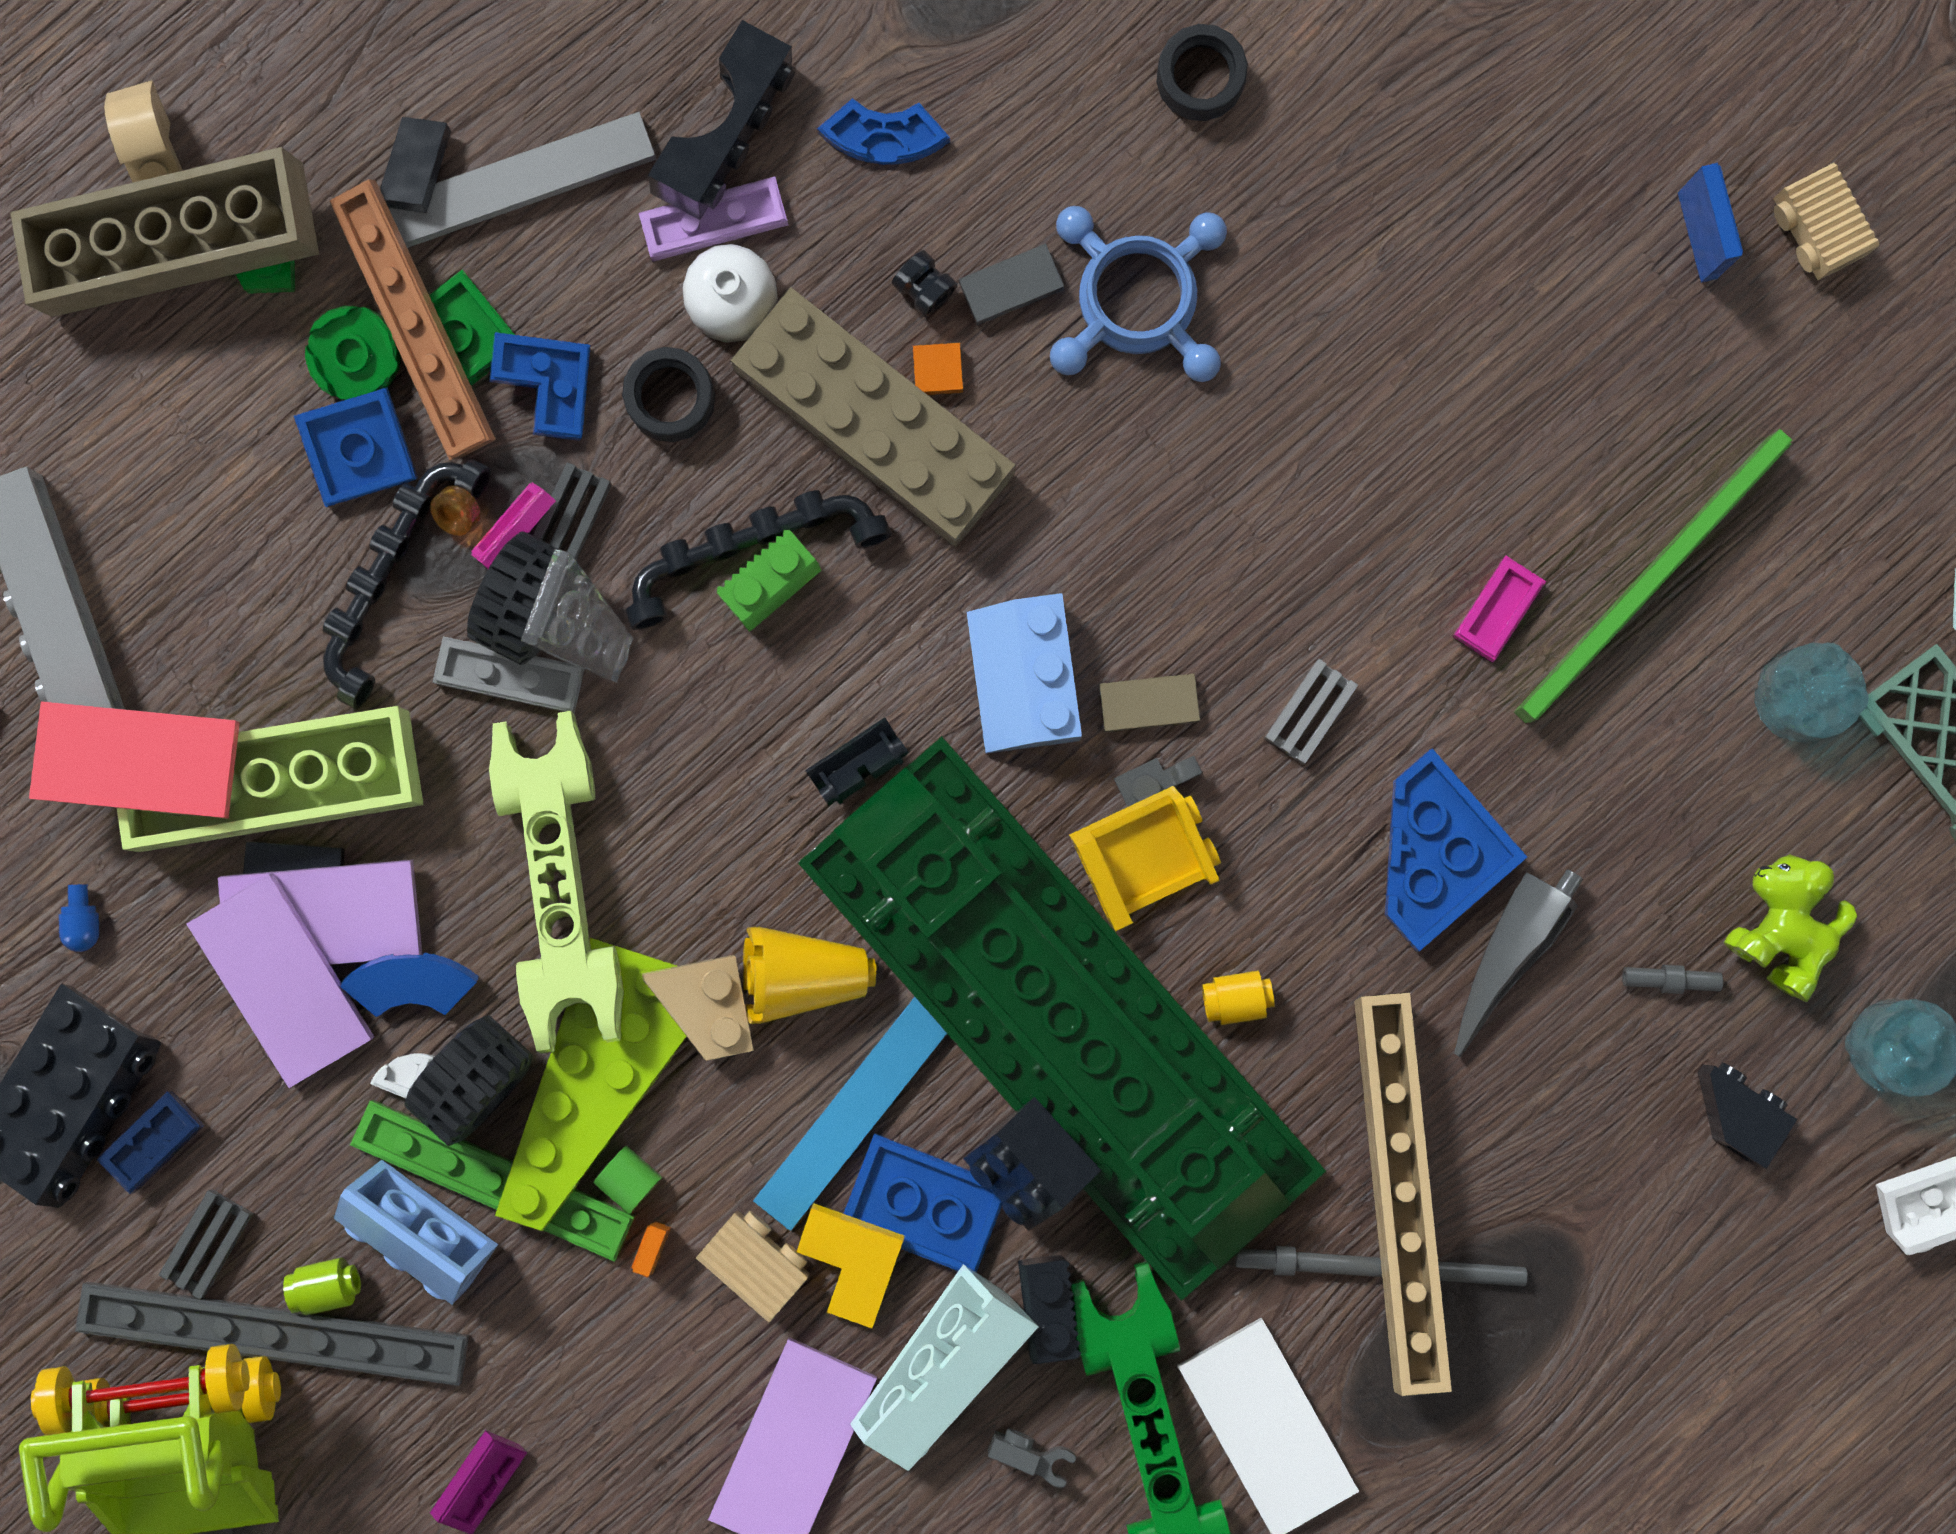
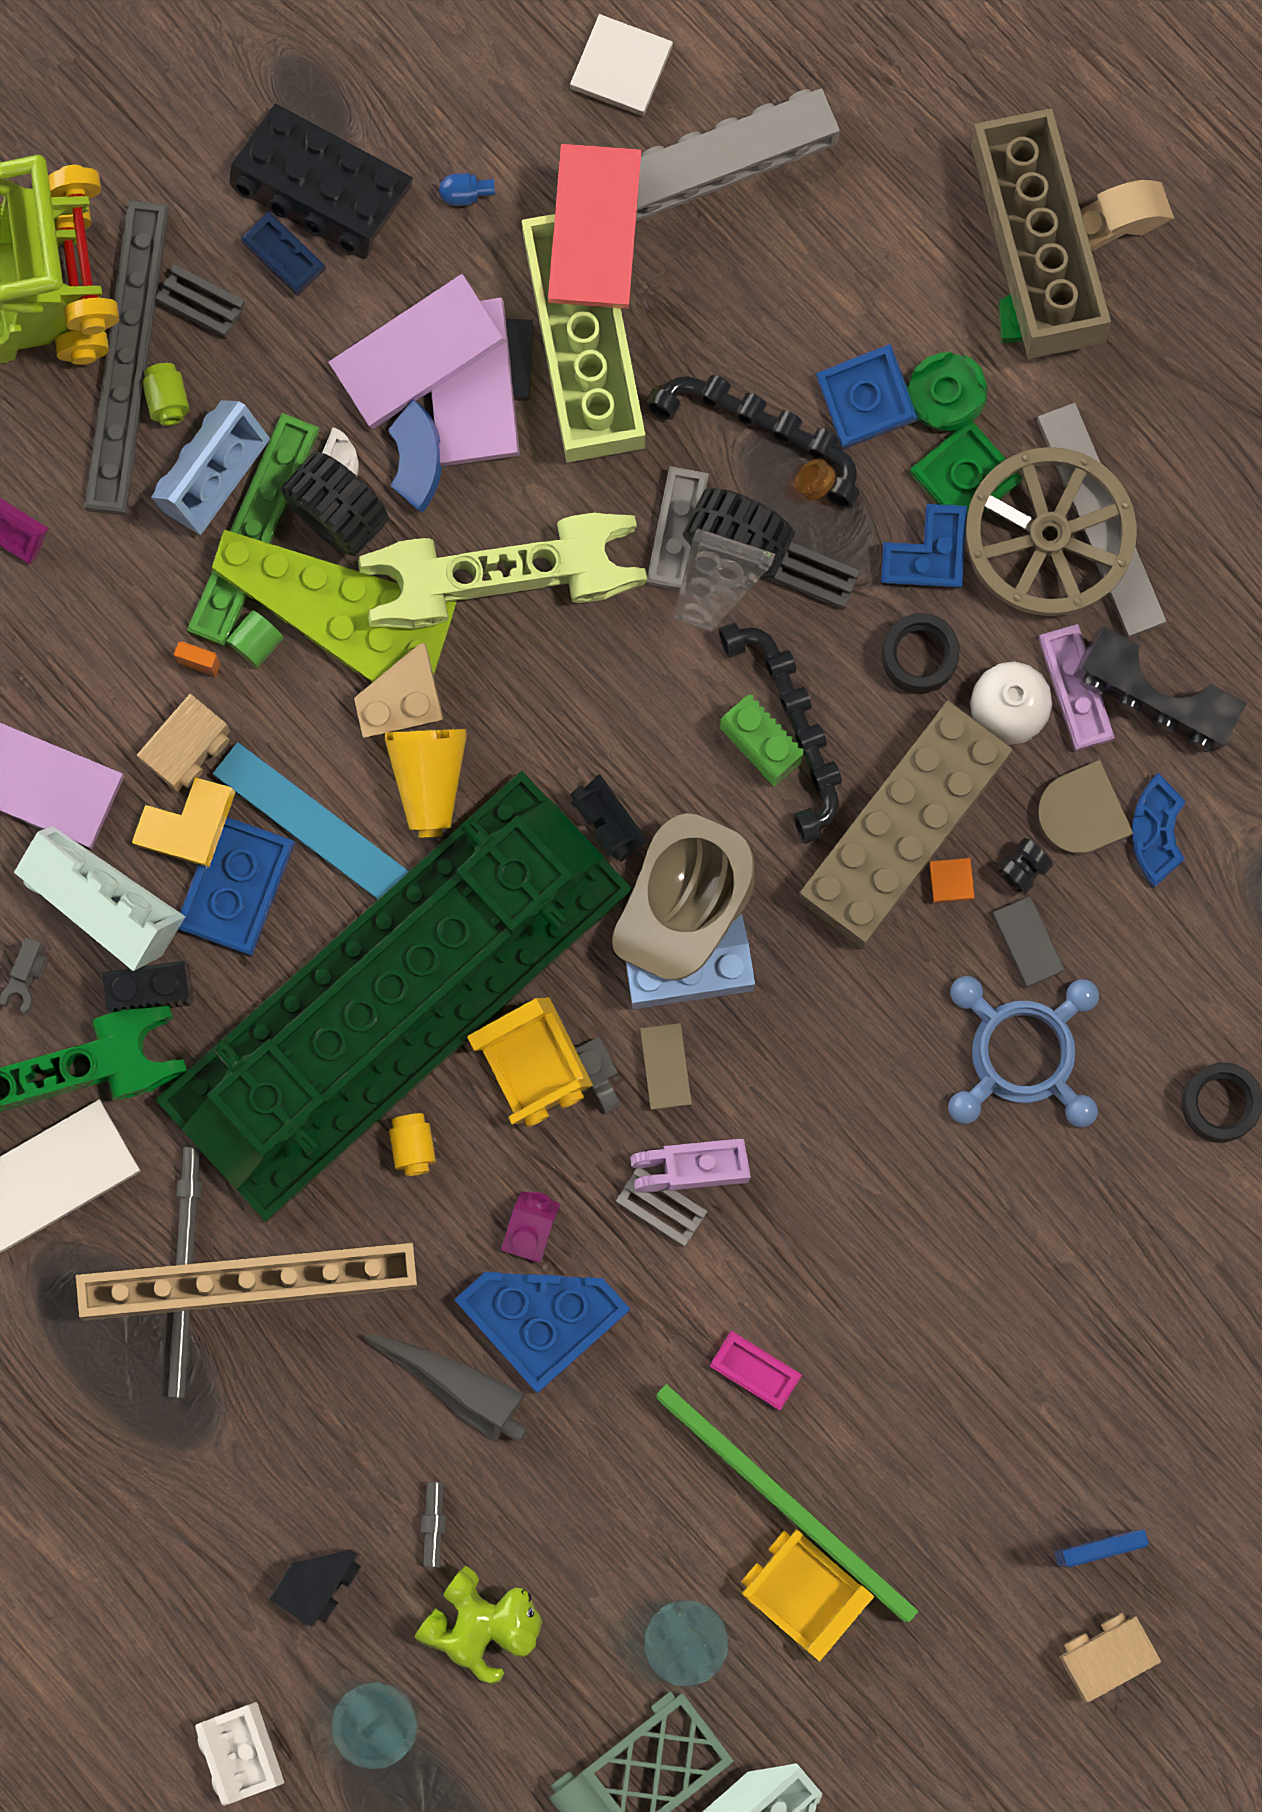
camera: 90 degrees right, 5 degrees down
(412, 319) = (975, 438): nougat tile -> none
(414, 164) = (1111, 435): black tile -> none
(519, 517) = (806, 529): dark pink tile -> none
(527, 226) = (1055, 521): none -> dark tan wheel
(860, 217) = (1082, 812): none -> dark tan tile
(959, 672) = (685, 897): none -> dark tan piece
(1031, 1165) = (268, 966): black brick -> none
(1267, 669) = (694, 1165): none -> lavender hinge
(1332, 861) = (530, 1225): none -> magenta bracket
(1754, 556) = (805, 1593): none -> yellow panel

